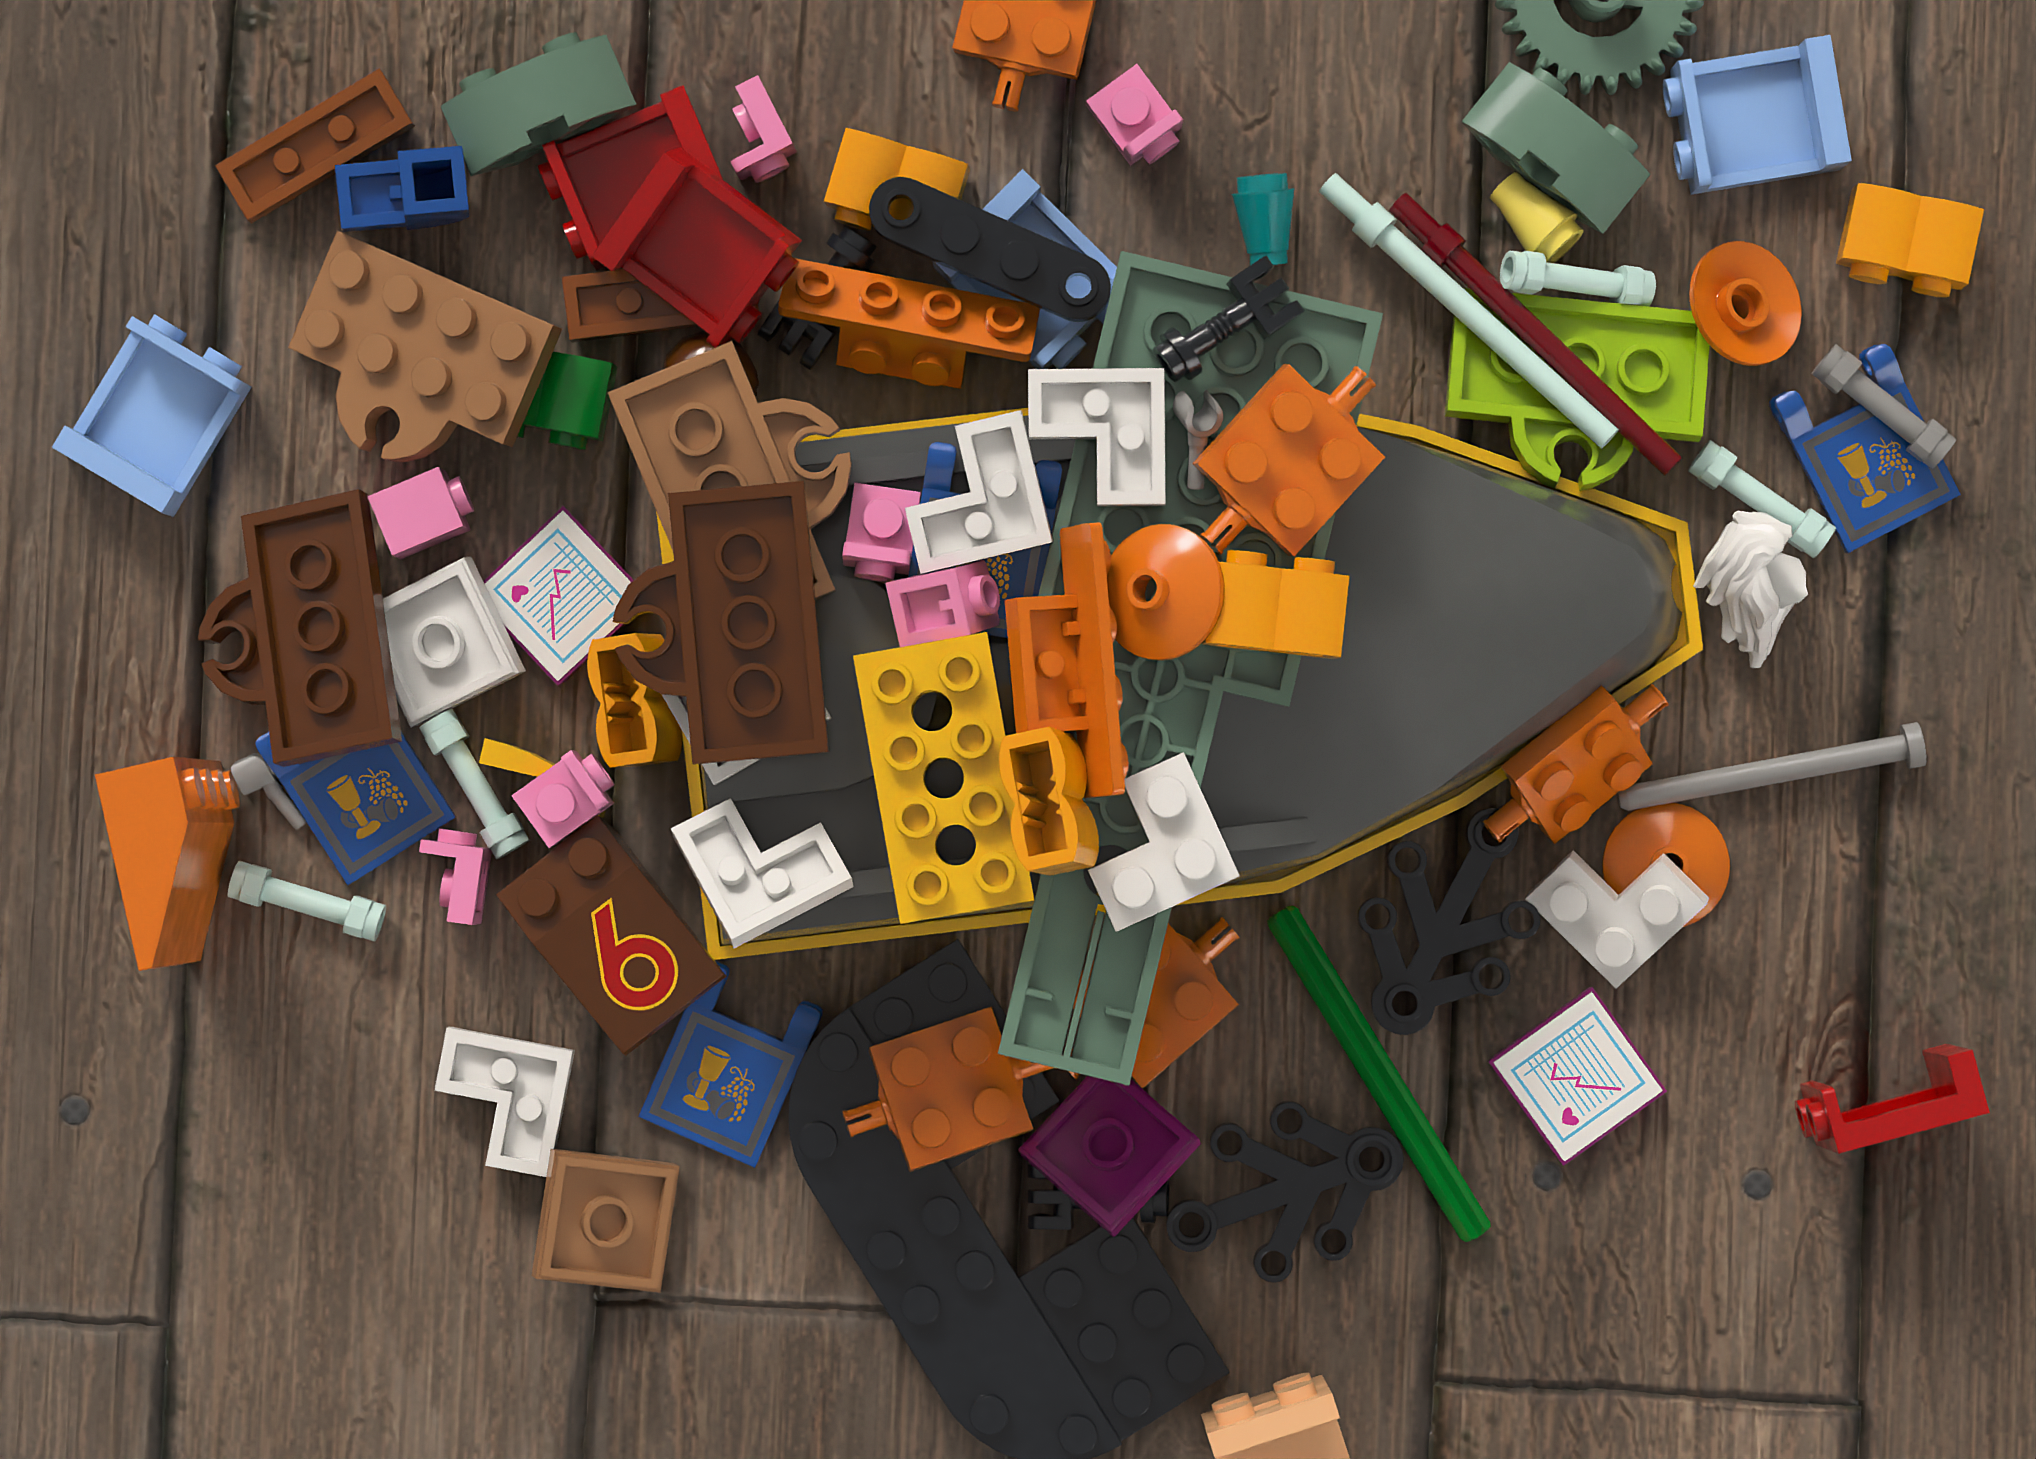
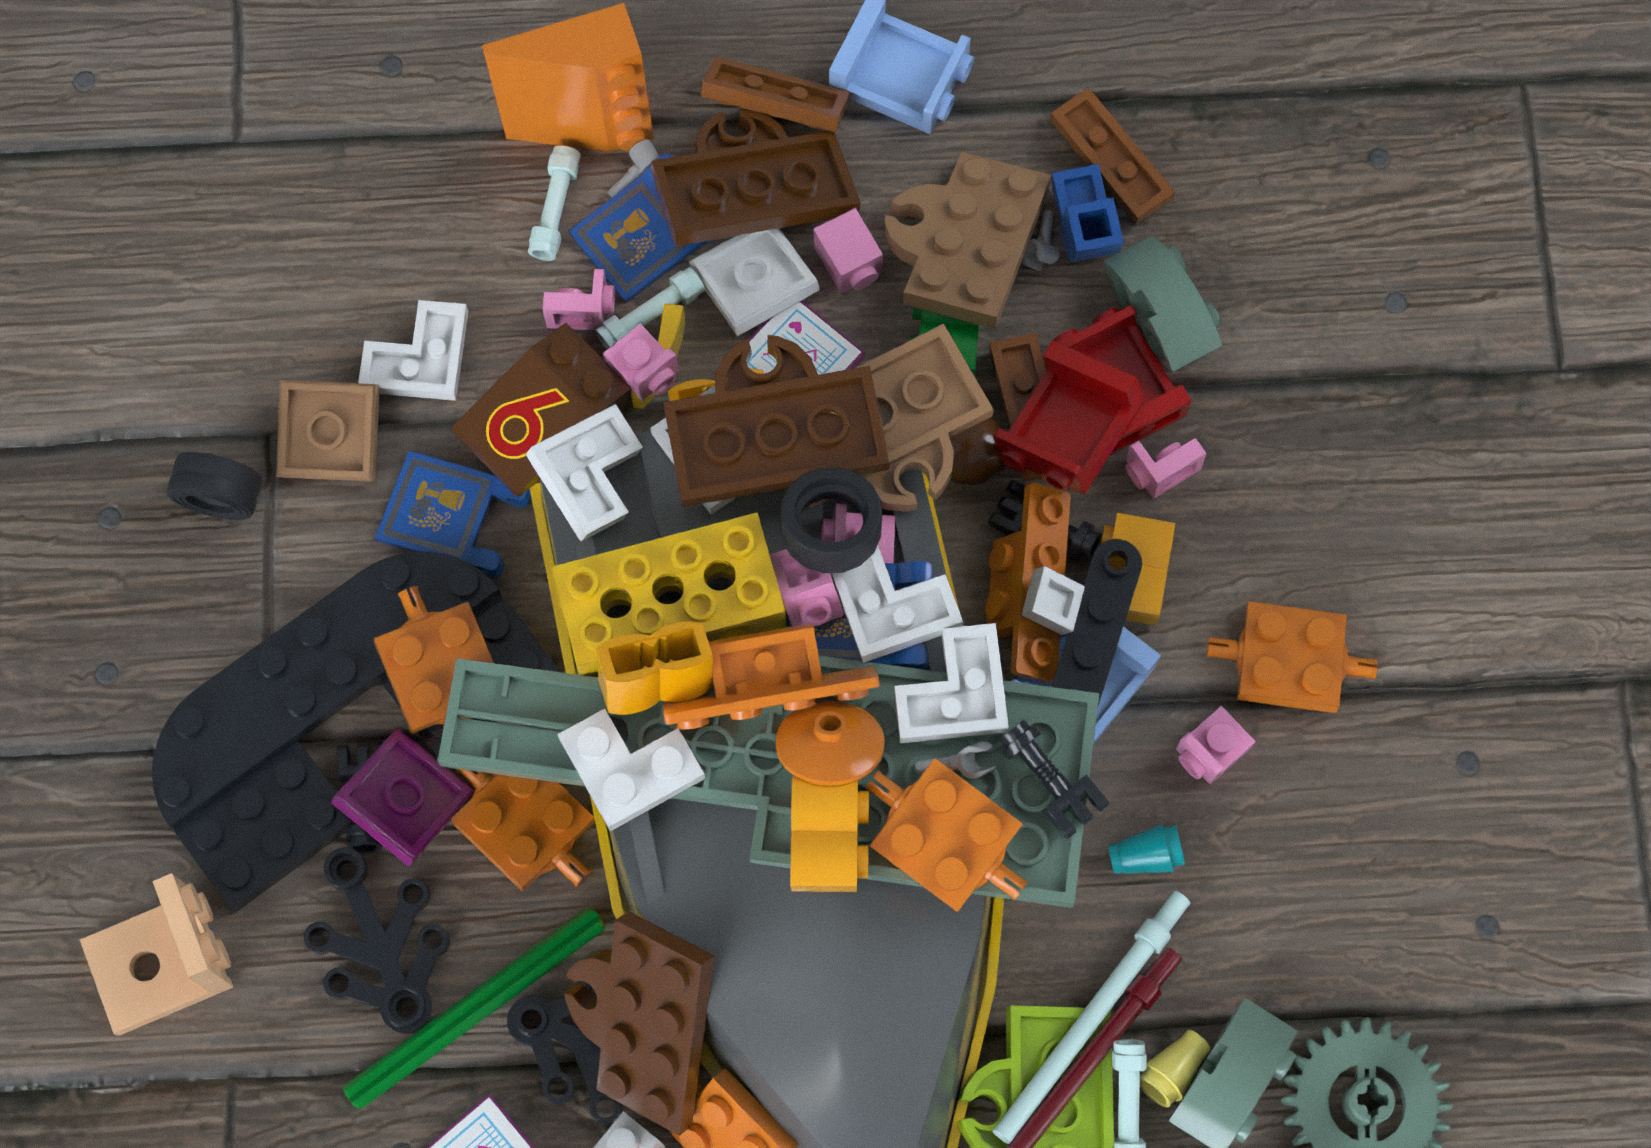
camera: 80 degrees right, 15 degrees down
(180, 589) = (775, 94): none -> dark orange plate
(444, 254) = (1041, 249): none -> light grey hand
(674, 1370) = (214, 486): none -> black tyre
(829, 538) = (831, 484): none -> black tyre
(946, 296) = (1053, 600): none -> white plate
(1439, 854) = (645, 1018): none -> reddish brown plate

